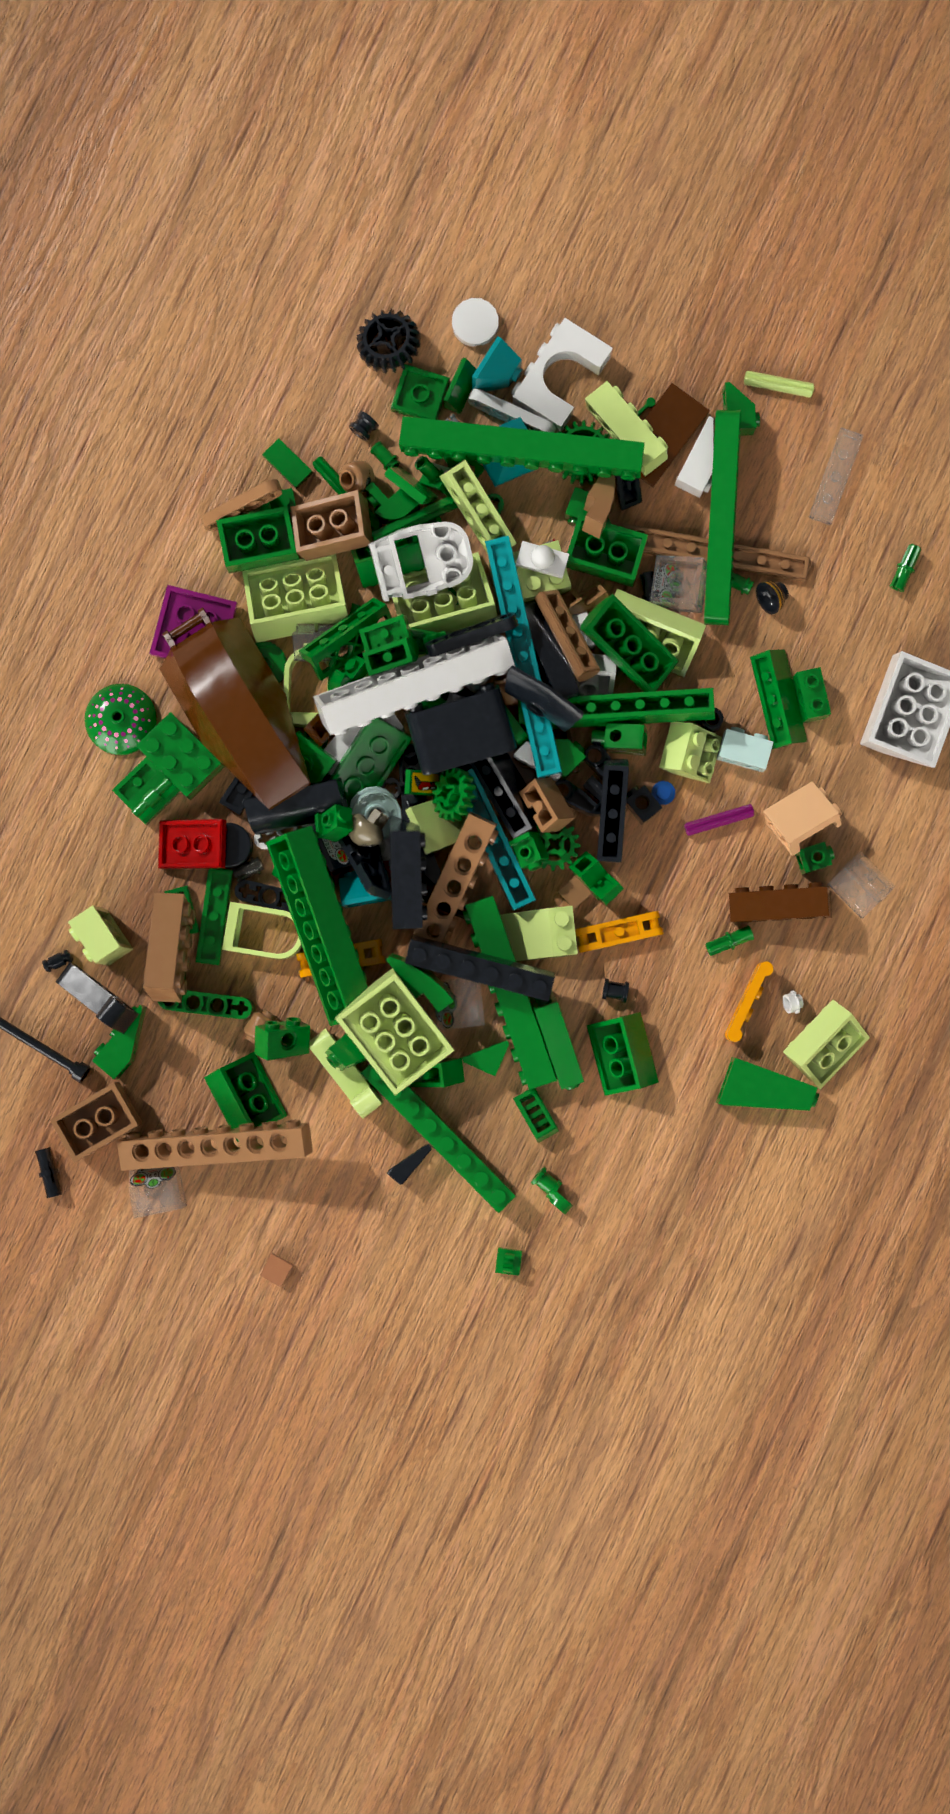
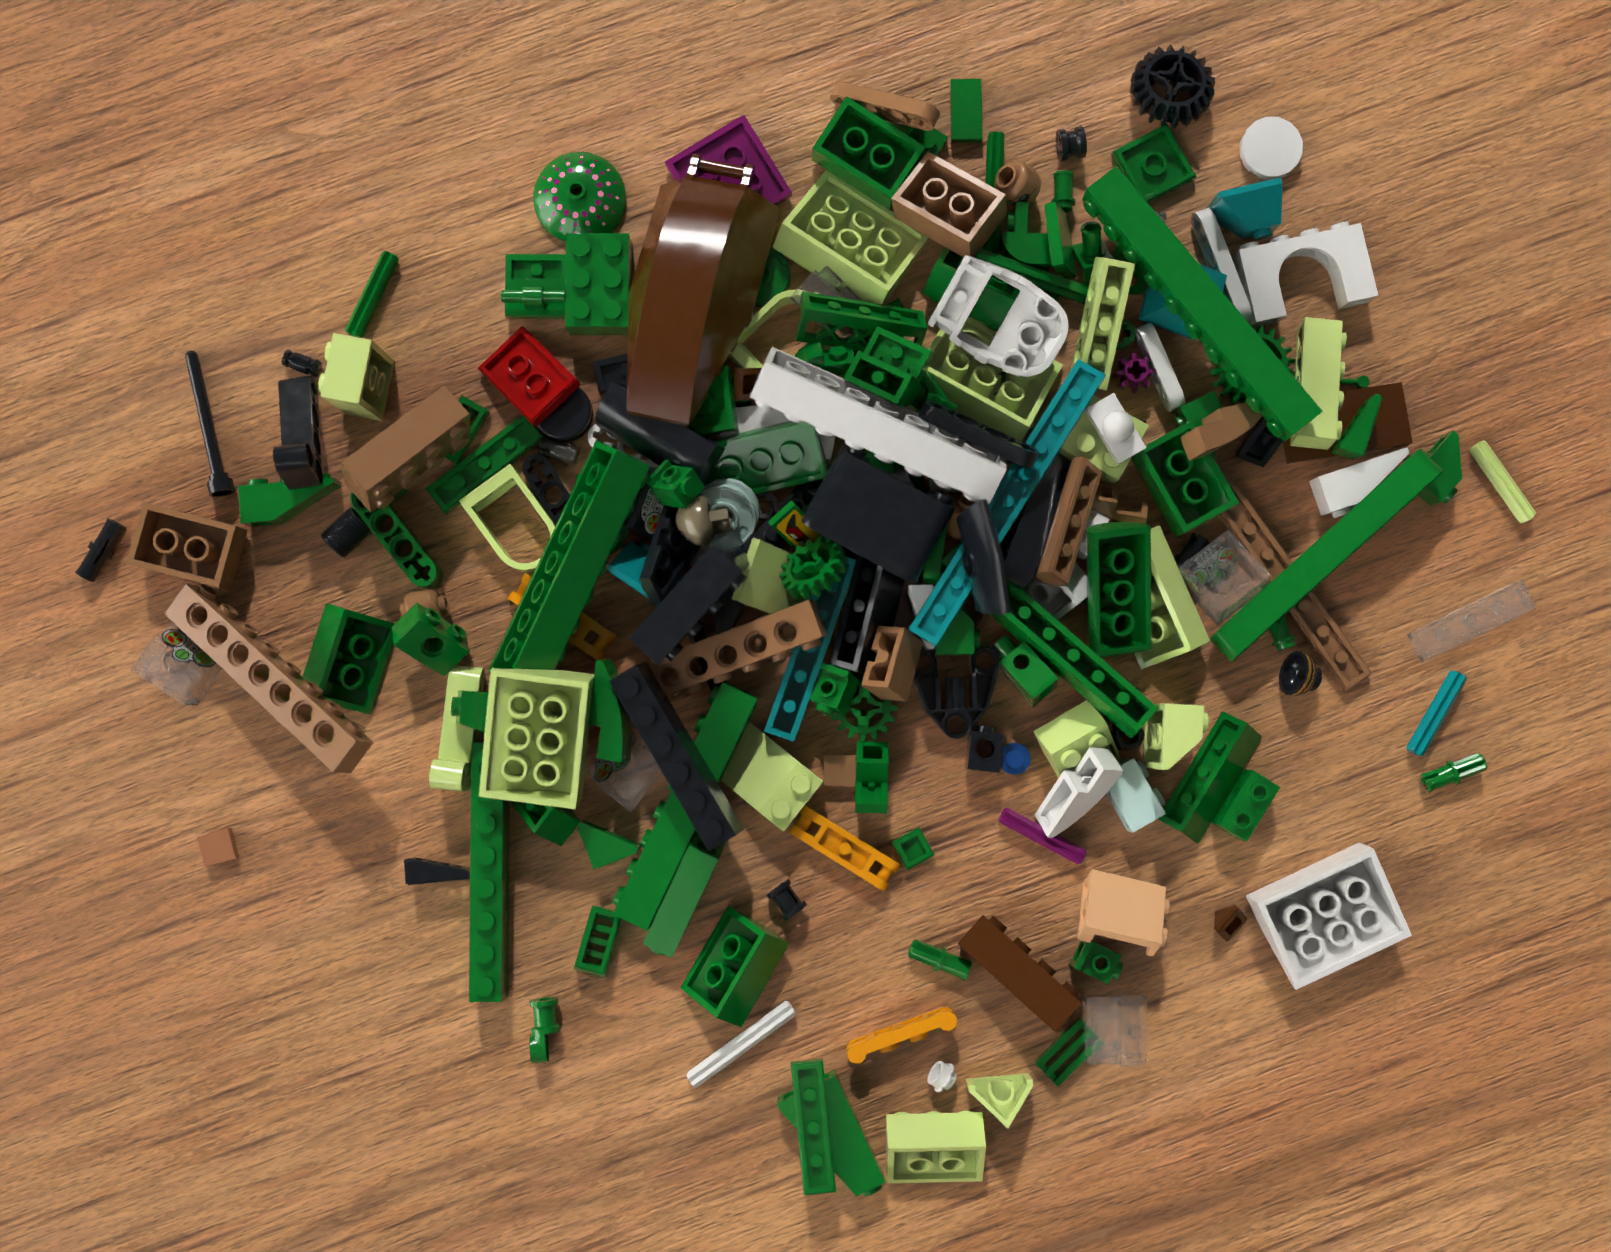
camera: 40 degrees right, 0 degrees up
(58, 885) = (371, 294): none -> green axle
(176, 1028) = (346, 532): none -> black piece
(460, 387) = (1196, 194): green slope -> none
(508, 1261) = (438, 1053): green tile -> none
(521, 512) = (1139, 366): none -> magenta gear
(532, 502) = (1164, 376): none -> white beam
(613, 810) = (949, 729): black brick -> none
(656, 895) = (913, 848): none -> green tile
(667, 1092) = (741, 1044): none -> white axle
(676, 437) = (1358, 432): none -> green slope
(714, 775) = (1078, 791): none -> white slope
(734, 694) = (1172, 734): none -> yellowish green slope
(750, 1095) = (813, 1127): none -> green tile
(834, 979) = (1001, 1094): none -> yellowish green slope
(847, 943) = (1055, 1046): none -> green tile
(864, 767) = (1228, 921): none -> reddish brown slope
(865, 544) = (1436, 713): none -> teal axle

